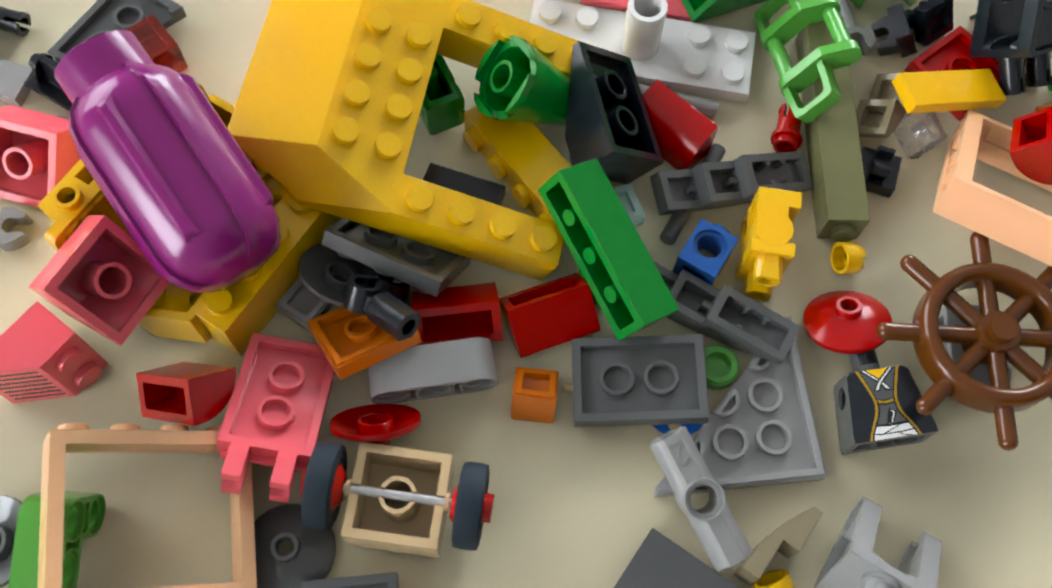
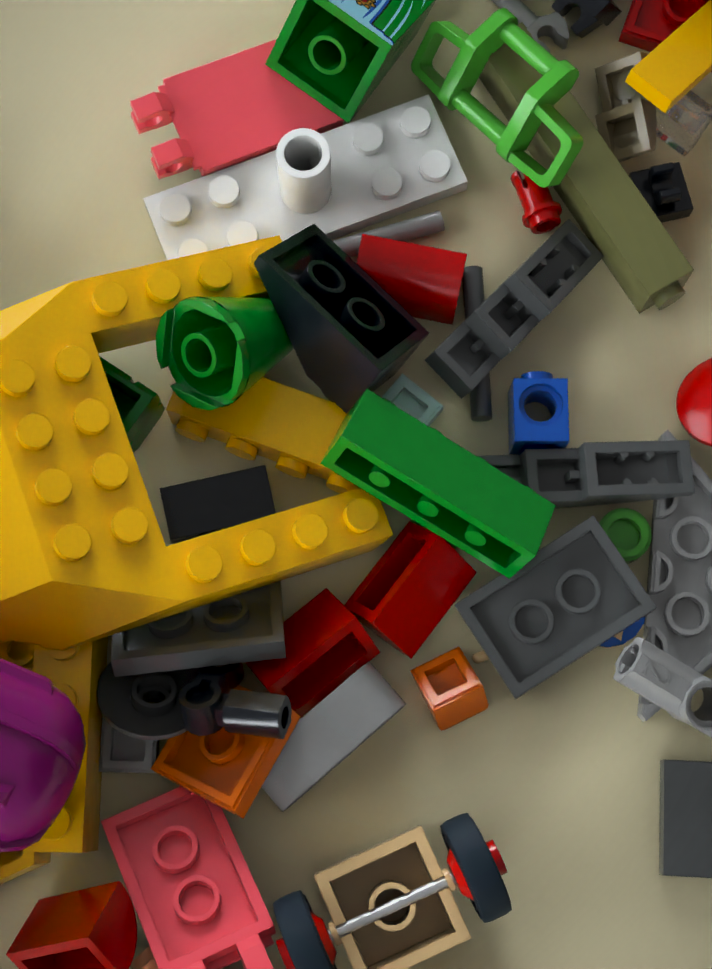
camera: 30 degrees left, 10 degrees up
(375, 423) = (308, 837): red dish -> none
(766, 240) = (599, 364): yellow hips -> none
(847, 258) = (688, 322): yellow hinge -> none

